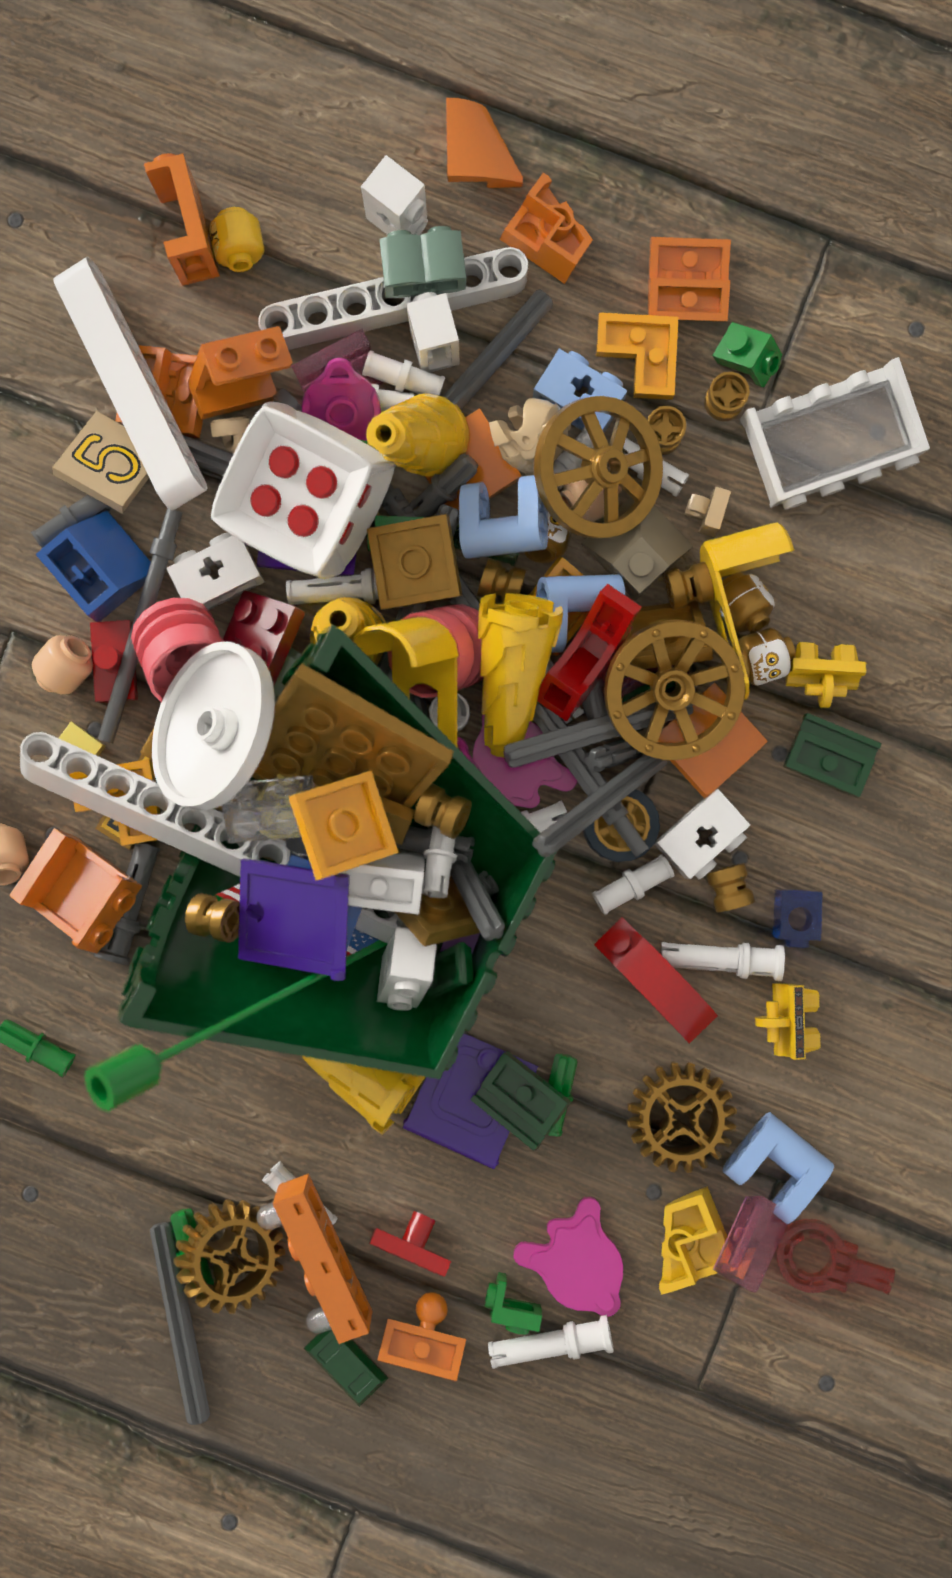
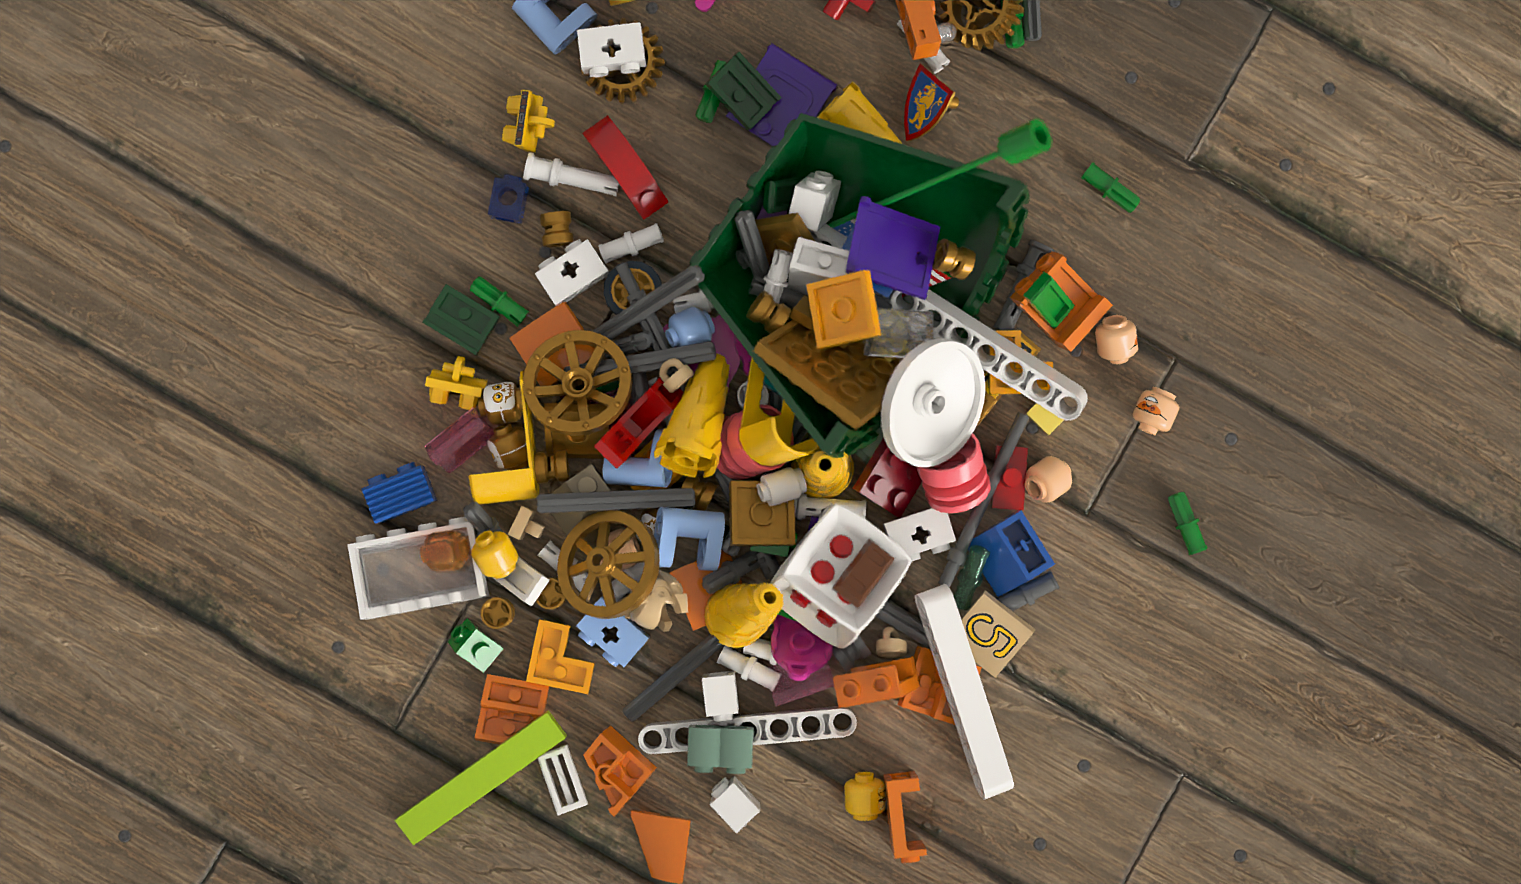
camera: 170 degrees left, 0 degrees up
(88, 887) = (1049, 300): none -> green tile
(142, 528) = (970, 576): none -> clear green pin
(268, 487) = (863, 573): none -> reddish brown tile
(284, 1120) = (926, 103): none -> shield
(393, 596) = (781, 486): none -> white brick
(541, 783) = (689, 327): none -> light blue head
(546, 713) = (678, 378): none -> tan tile
(602, 550) = (615, 500): none -> dark grey axle
(628, 237) = (565, 787): none -> white tile
(708, 442) = (524, 582): none -> white tile
(714, 191) = (481, 777): none -> lime tile
(719, 1136) = (595, 45): none -> white brick
(743, 461) = (494, 554): none -> yellow head
(758, 497) = (480, 519): none -> dark grey axle
(788, 786) = (499, 300): none -> green axle
(806, 457) = (445, 551): none -> clear orange head
(810, 601) = (459, 441): none -> clear pink panel
(874, 524) = (398, 494): none -> blue brick

